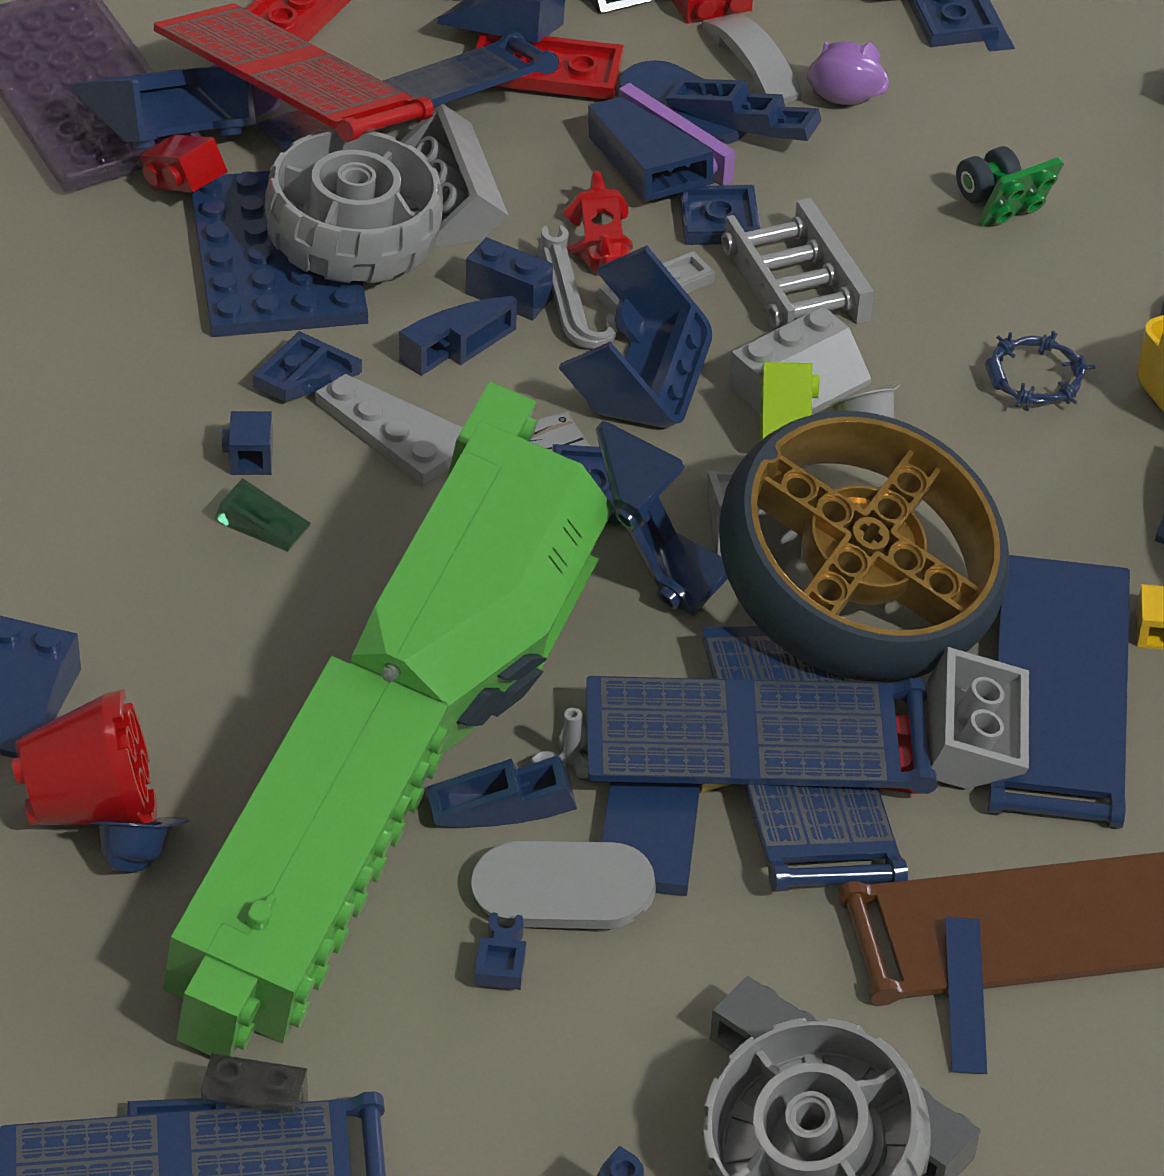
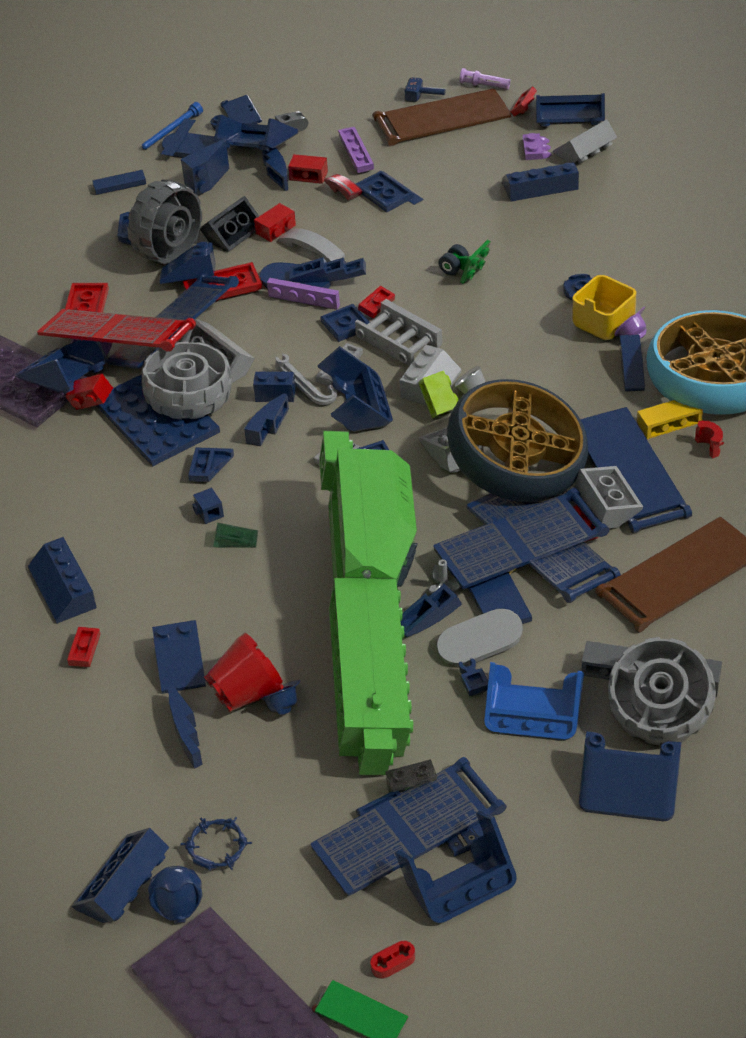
camera: 20 degrees left, 0 degrees up
(395, 428) = (272, 474): light grey wing -> none
(568, 1057) = (530, 708): none -> blue windscreen
(605, 241) = (306, 355): red piece -> none
(637, 476) = (415, 449): dark blue windscreen -> none
(648, 150) = (297, 305): dark blue slope -> none
(780, 199) = (372, 304): none -> red plate
(848, 73) = (363, 237): medium lavender helmet -> none
(966, 995) = (675, 611): dark blue sticker -> none
(1006, 347) = (533, 350): dark blue piece -> none

